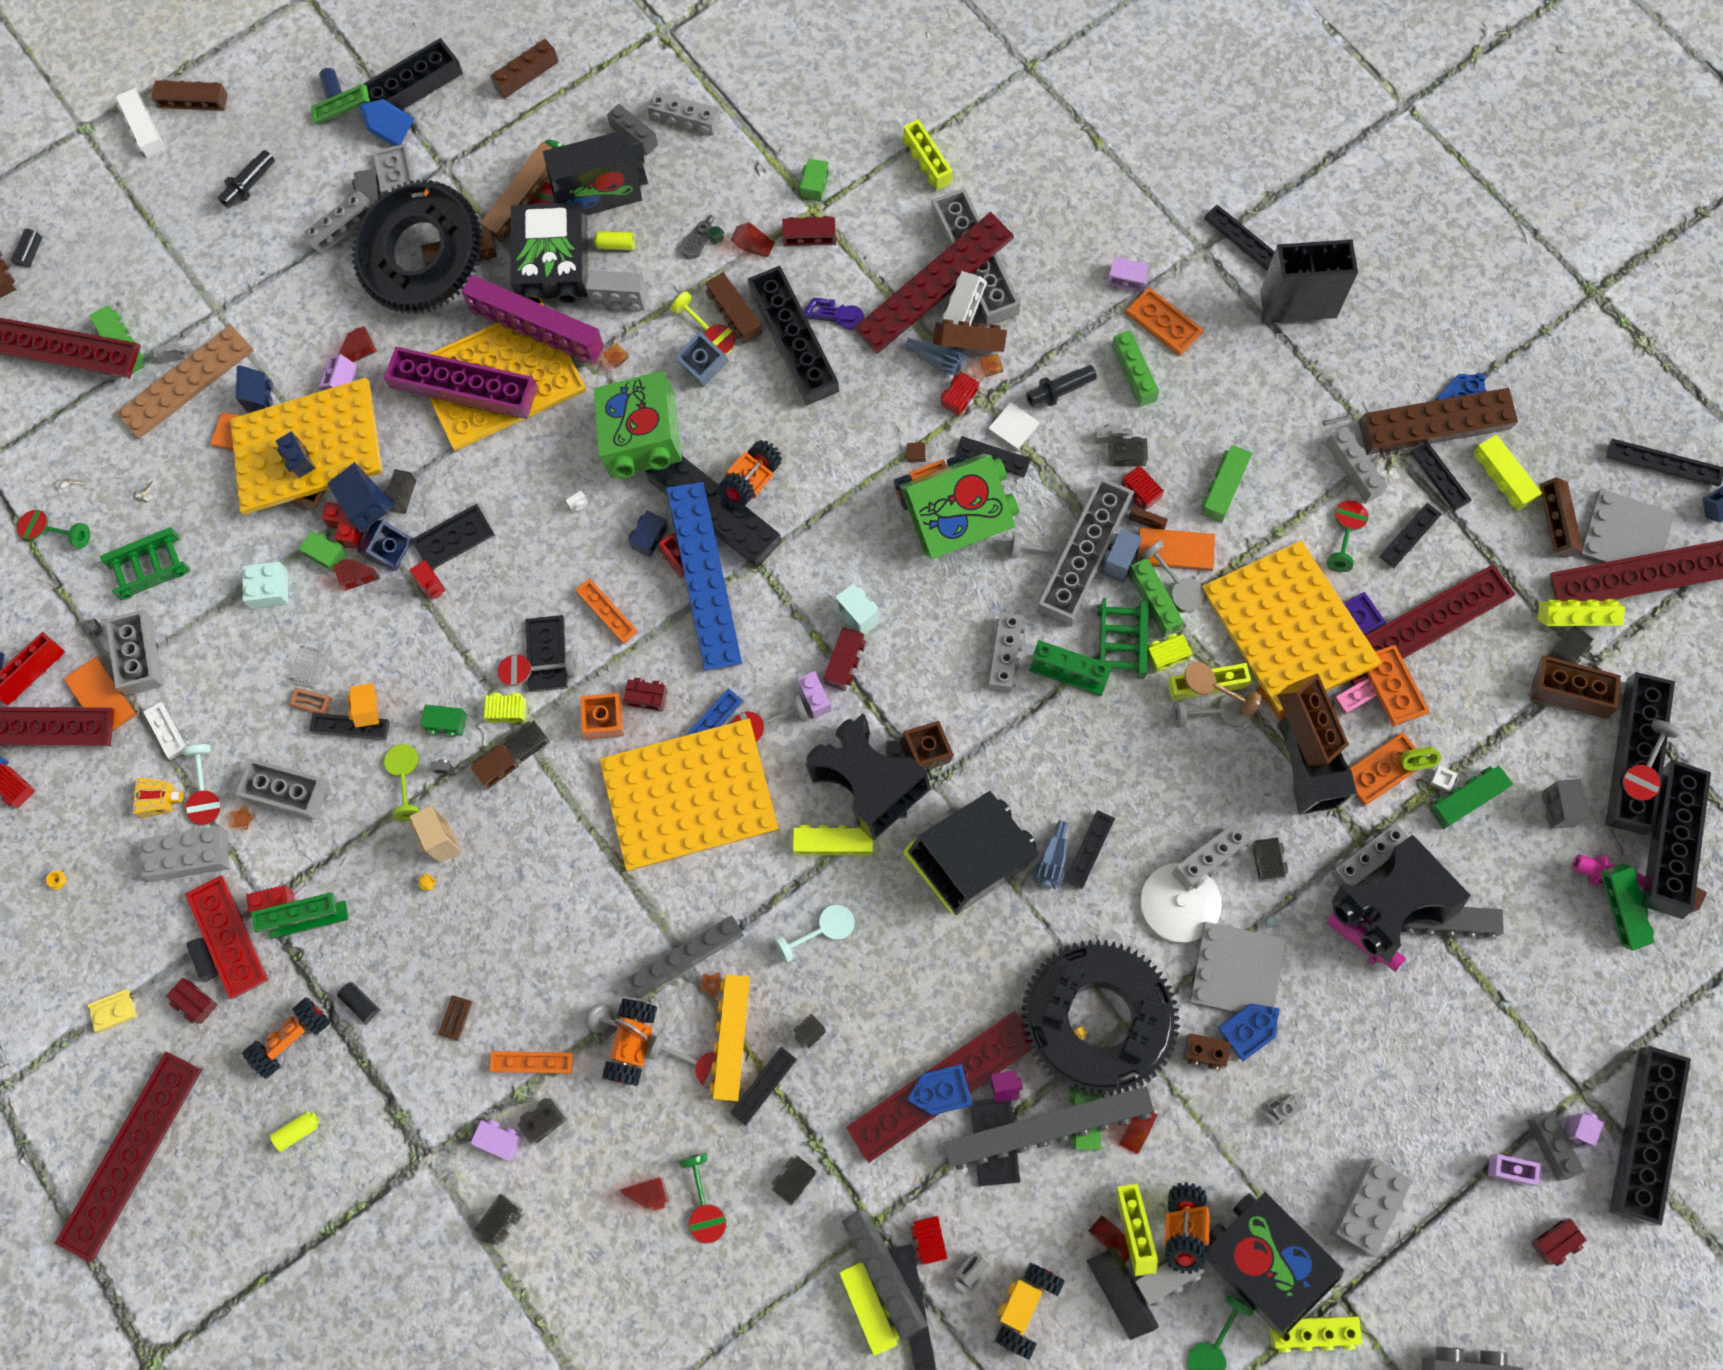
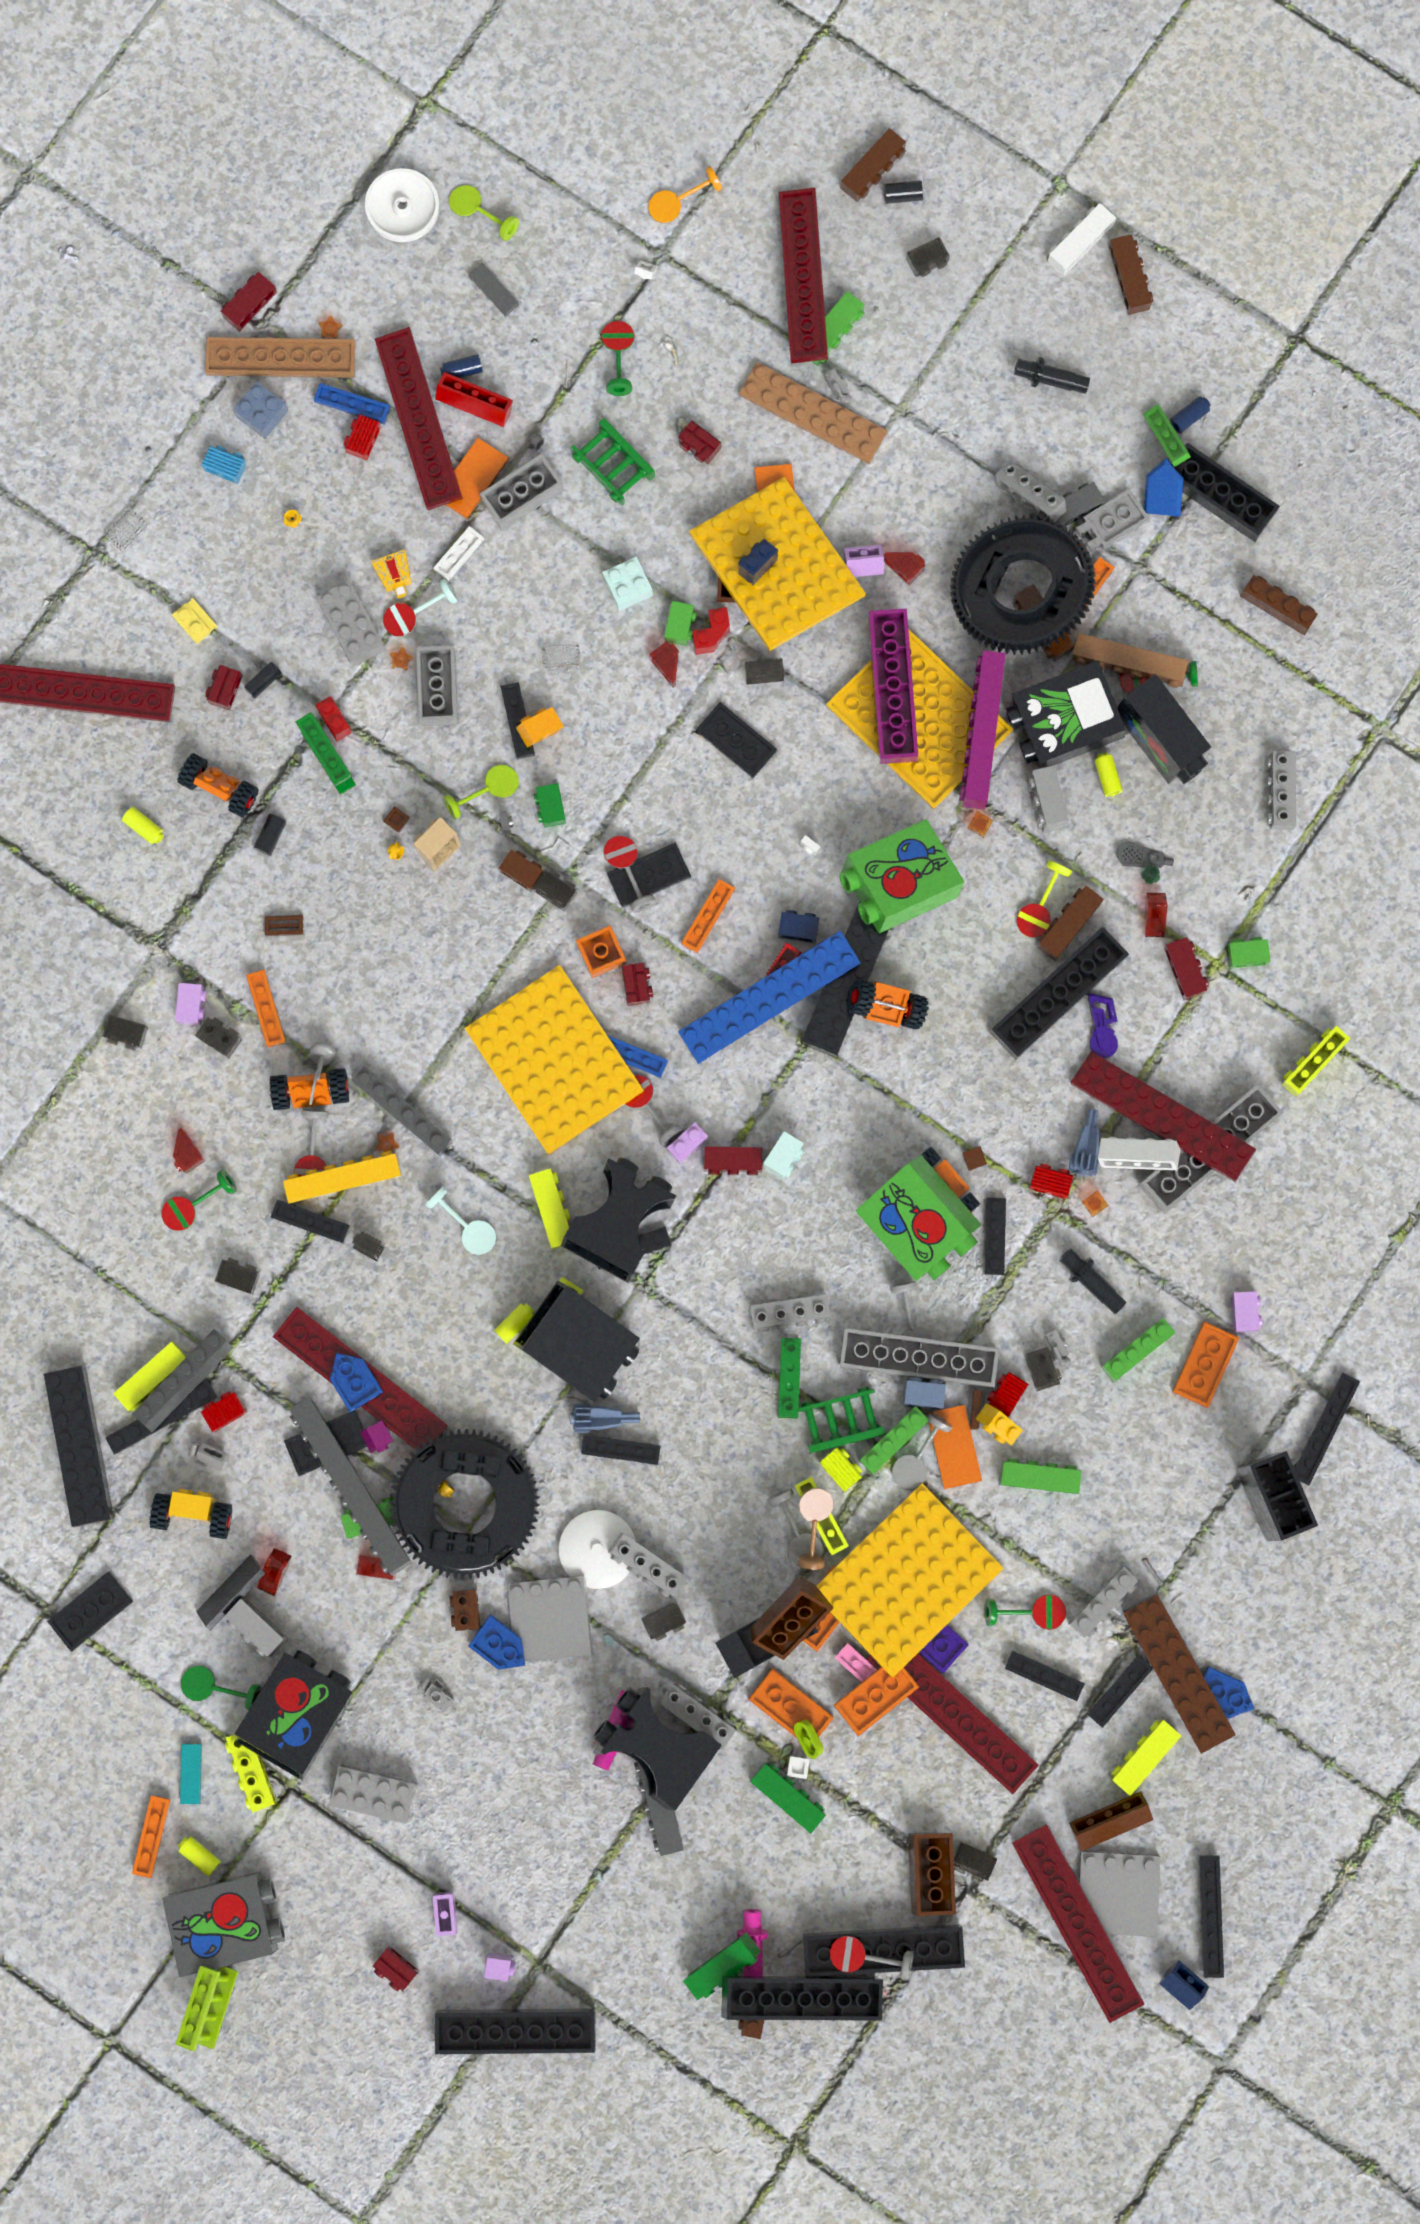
camera: 70 degrees right, 10 degrees up
(94, 245) = (928, 257): none -> clear smoke brick
(164, 482) = (699, 443): none -> dark red brick
(226, 937) = (289, 693): red plate -> none
(253, 389) = (821, 487): dark blue slope -> none
(325, 705) = (531, 689): nougat tile -> none
(359, 497) = (737, 640): dark blue slope -> none
(385, 545) = (705, 679): dark blue slope -> none
(396, 872) = (396, 819): none -> reddish brown tile
(427, 580) = (680, 736): red brick -> none
(504, 708) = (580, 857): neon yellow brick -> none
(637, 131) = (1243, 744): dark grey brick -> none
(701, 358) = (1001, 911): sand blue brick -> none
(927, 745) = (668, 1266): reddish brown brick -> none
(933, 912) = (514, 1322): none -> neon yellow brick
(970, 337) = (1110, 1172): reddish brown brick -> none
(1014, 426) = (1035, 1247): white tile -> none
(1136, 1230) = (285, 1588): neon yellow brick -> none
(1169, 500) = (998, 1424): none -> yellow brick
(1186, 1228) = (299, 1631): plate -> none
(1555, 1146) = (479, 1947): dark grey brick -> none
(1565, 803) = (806, 1887): dark grey brick -> none
(1581, 613) = (1010, 1862): neon yellow brick -> none

